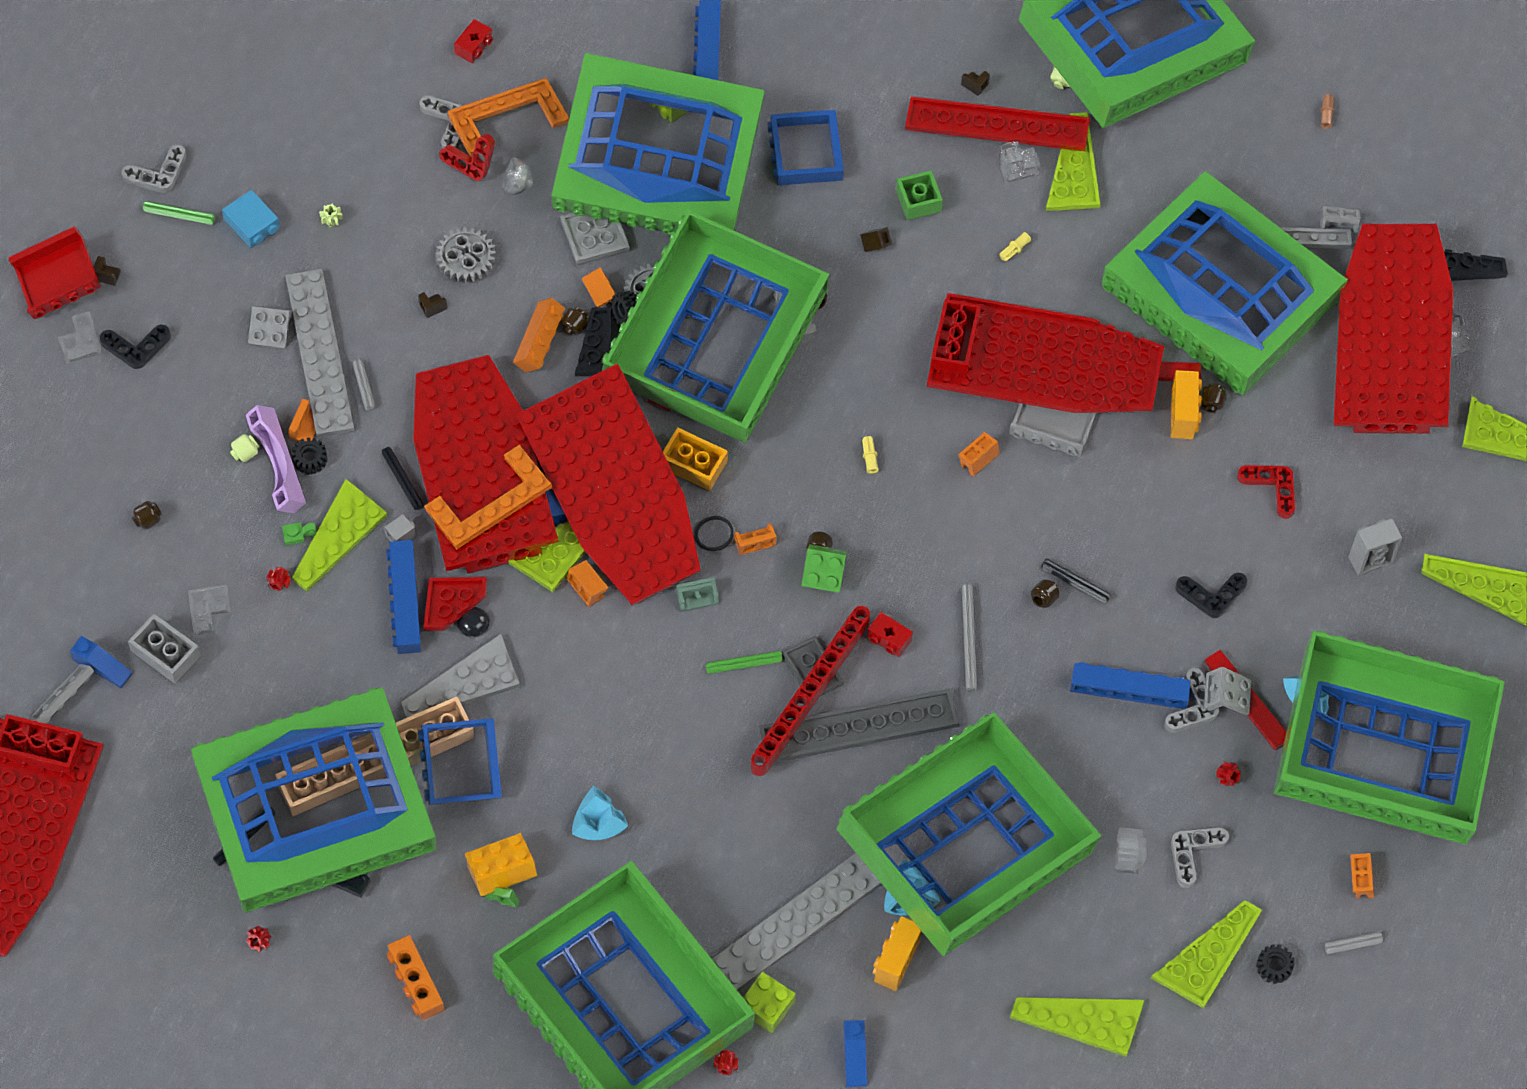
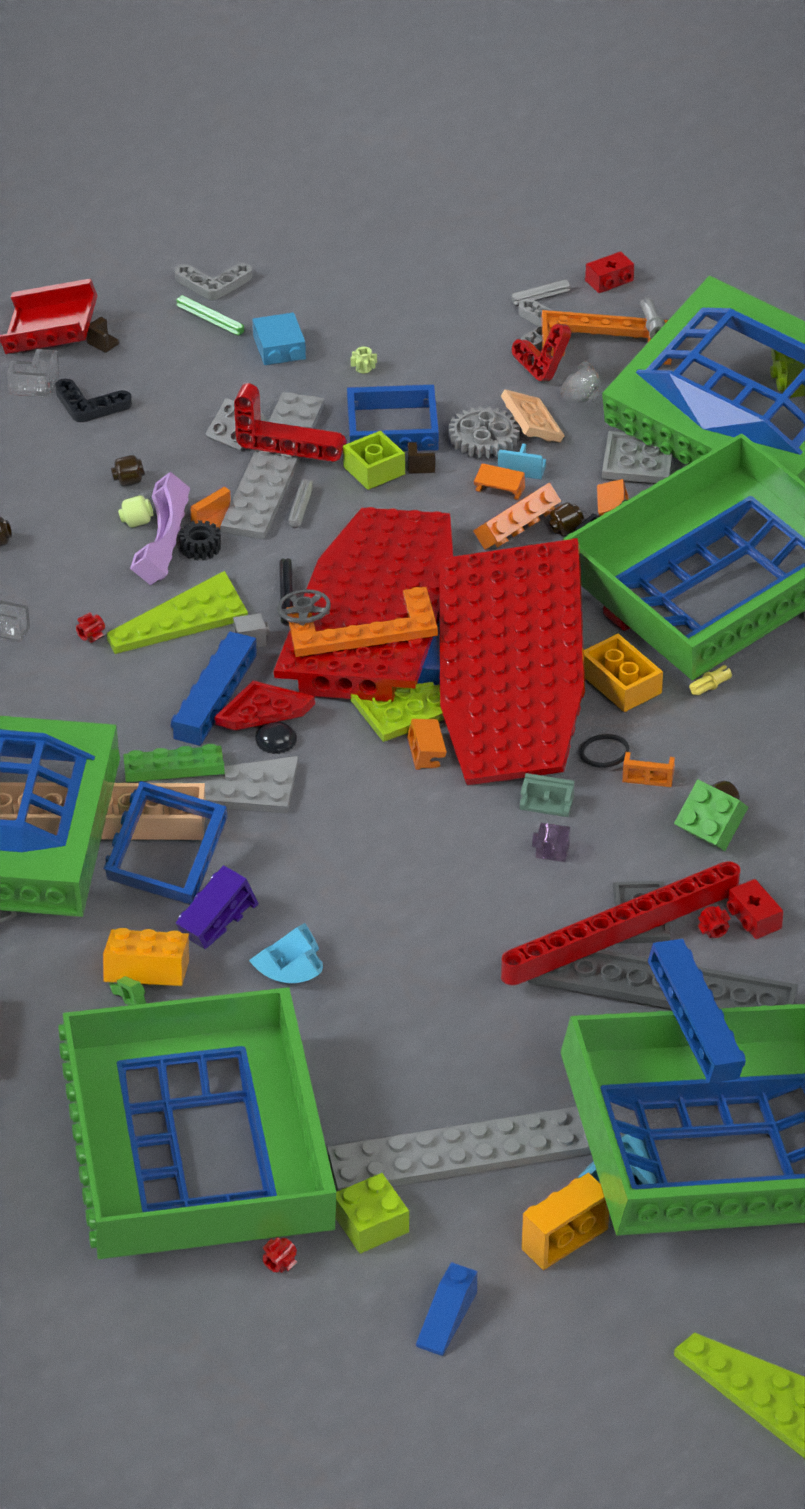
camera: 30 degrees right, 20 degrees down
(214, 409) = (128, 470): none -> dark brown head
(295, 533) = (139, 599): bright green plate -> none
(322, 330) = (278, 437): none -> red beam
(376, 247) = (395, 398): none -> blue window
(400, 321) = (374, 460): none -> lime brick
(418, 680) = (173, 763): none -> bright green plate
(428, 83) = (541, 291): none -> light grey axle
(441, 503) = (303, 606): none -> dark grey wheel
(495, 225) = (532, 416): none -> light nougat plate
(505, 302) = (500, 479): none -> orange hinge
(510, 276) = (530, 464): none -> medium azure panel
(522, 800) = (216, 907): none -> dark purple wedge
(542, 90) = (654, 321): none -> light grey pin
(722, 635) = (552, 842): none -> clear purple brick
(743, 662) = (562, 877): bright green axle -> none
(757, 437) = (710, 680): none -> light yellow axle
(868, 658) = (714, 922): none -> red gear
(920, 767) = (696, 1011): none -> blue brick

